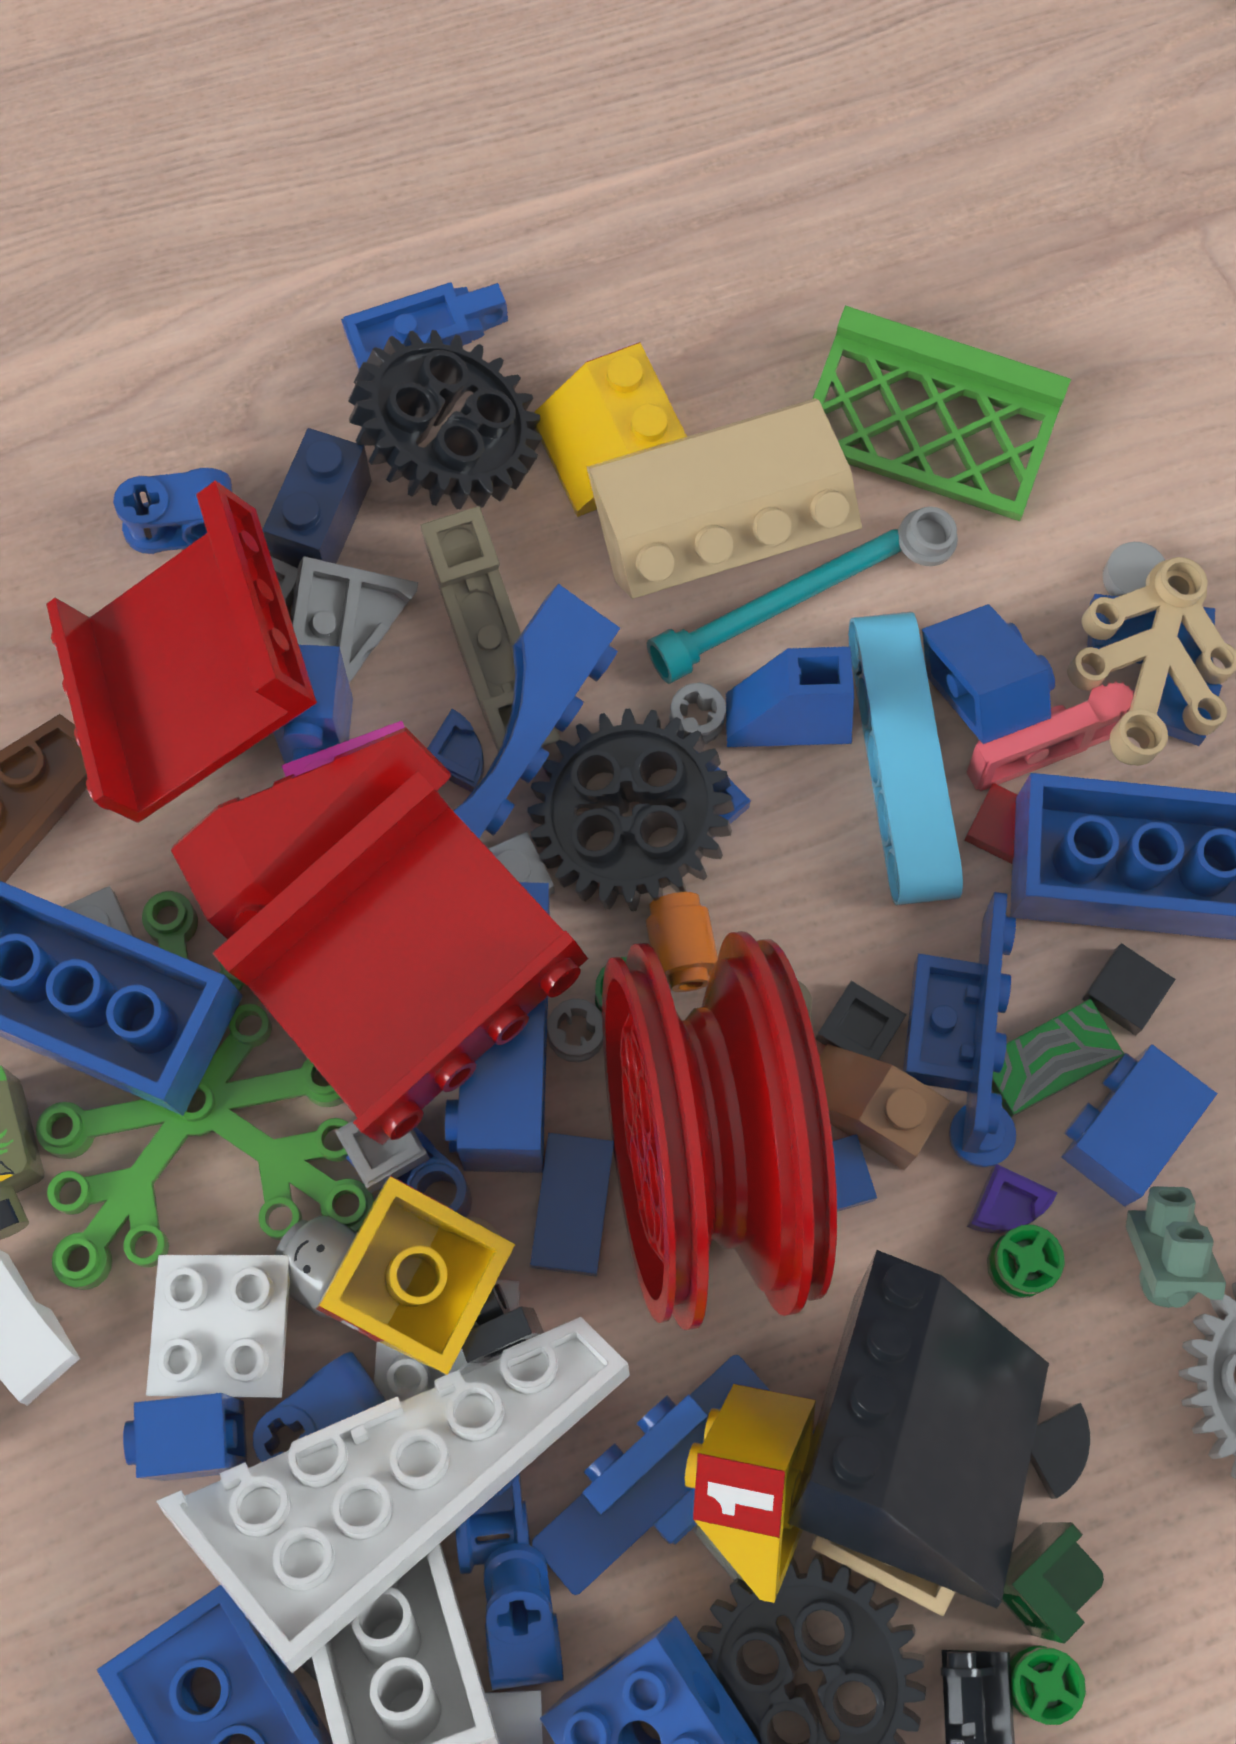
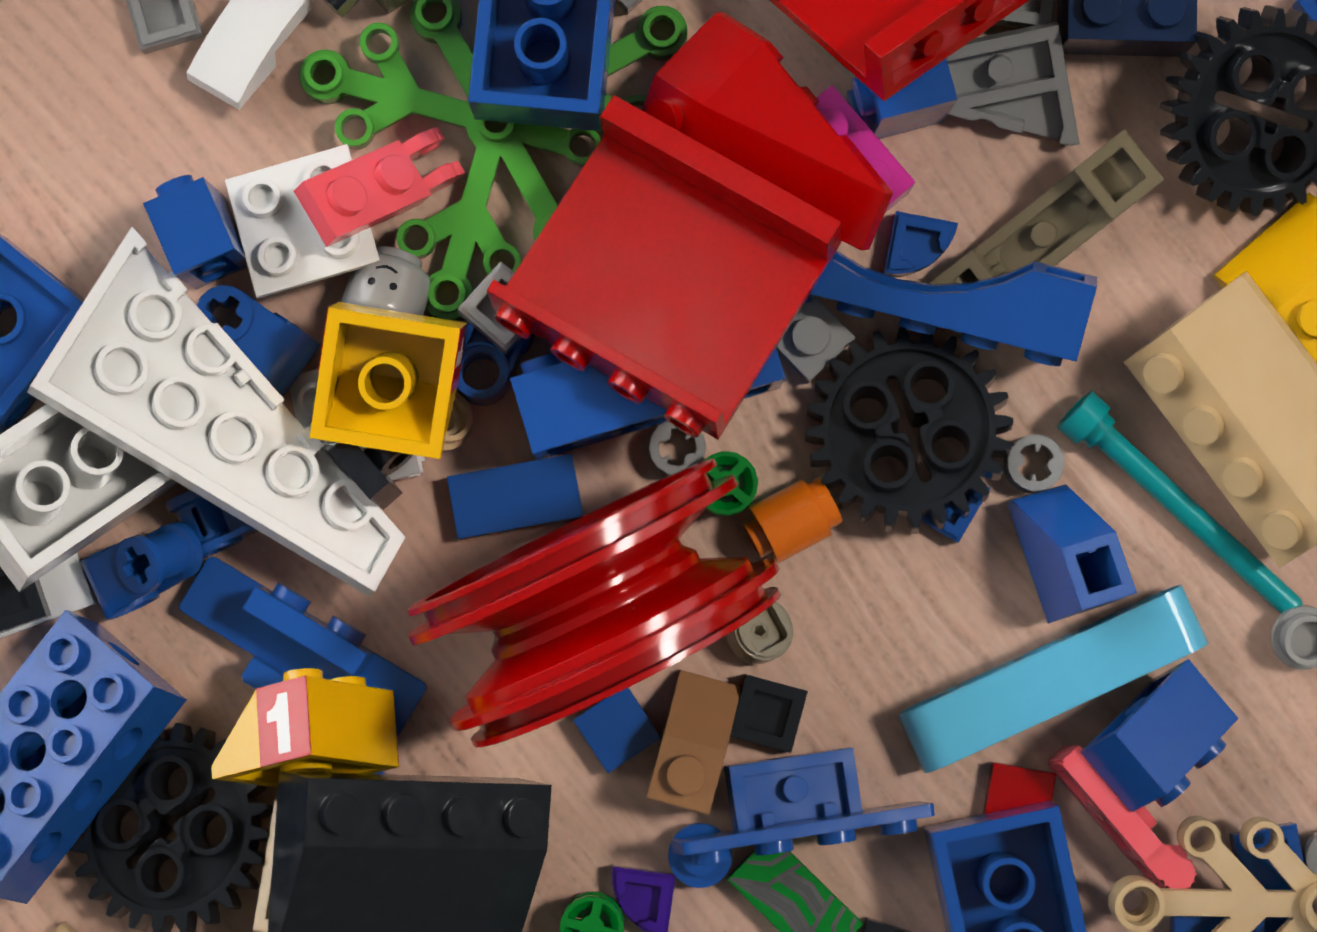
camera: 75 degrees right, 15 degrees up
(212, 1239) = (374, 187): none -> coral hinge

